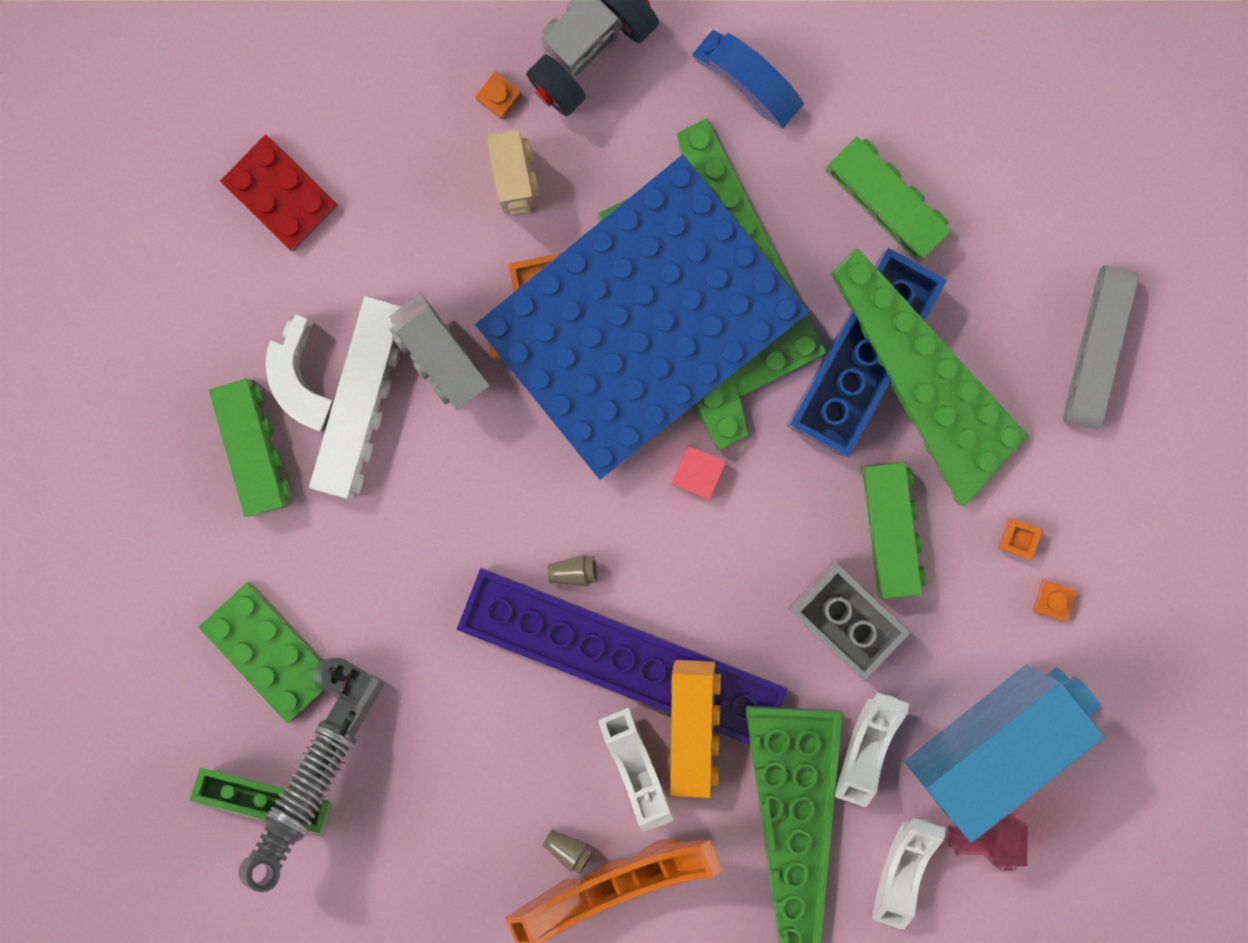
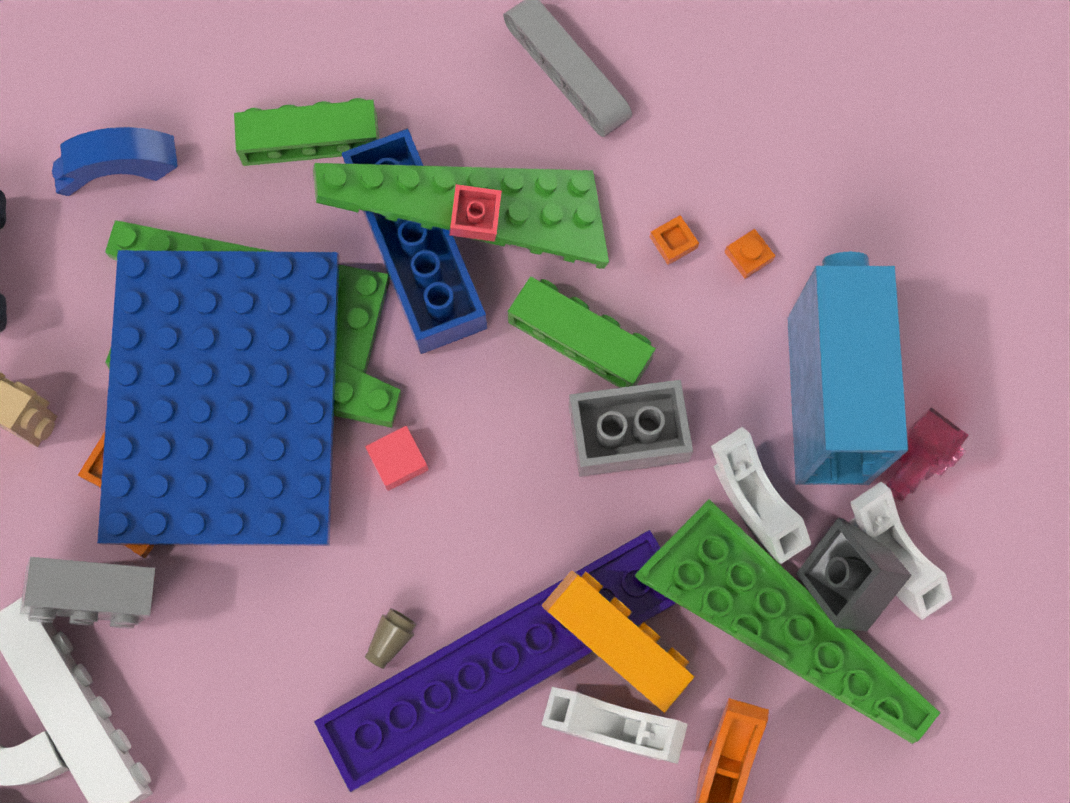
camera: 50 degrees left, 15 degrees down
(864, 852) = (852, 576): none -> dark grey slope
(917, 392) = (475, 213): none -> coral piece

